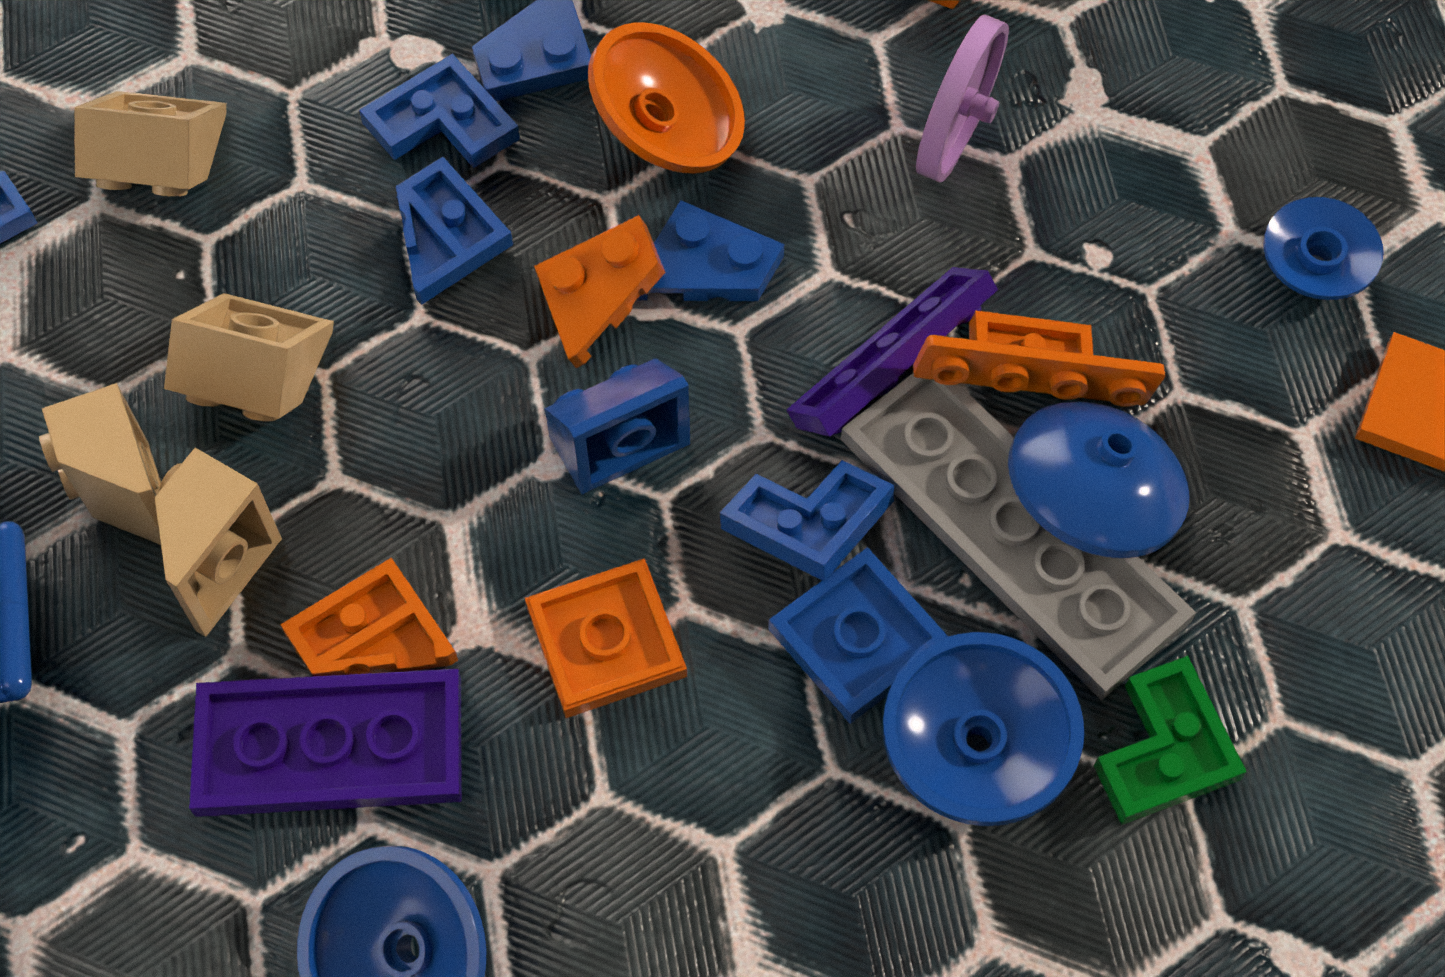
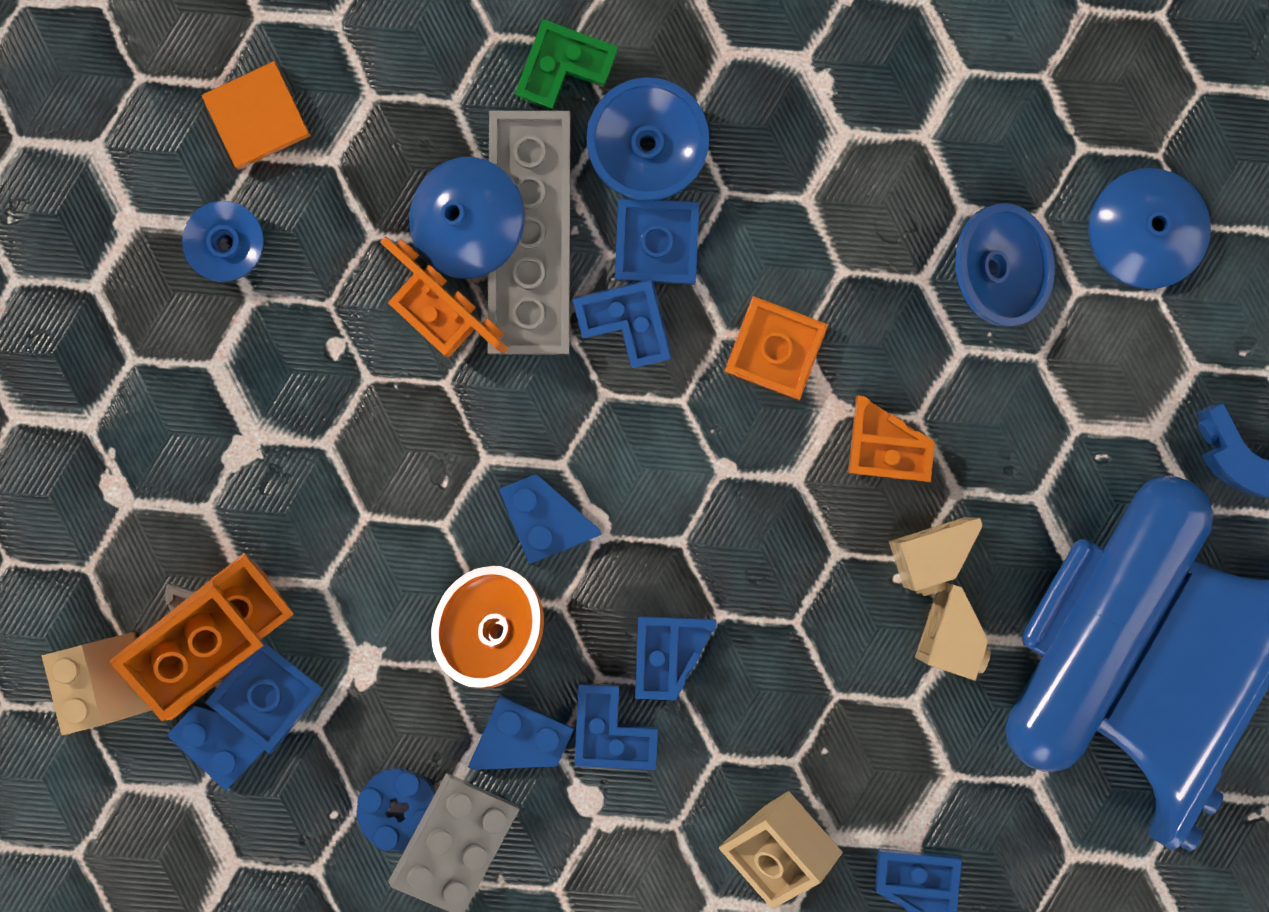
camera: 140 degrees left, 25 degrees up
(245, 356) = (830, 659): tan slope -> none
(326, 742) = (952, 402): dark purple plate -> none
(598, 284) = (617, 546): orange wing -> none
(620, 423) = (678, 453): blue slope -> none
(888, 353) = (500, 377): dark purple plate -> none
(963, 98) = (336, 477): lavender piece -> none

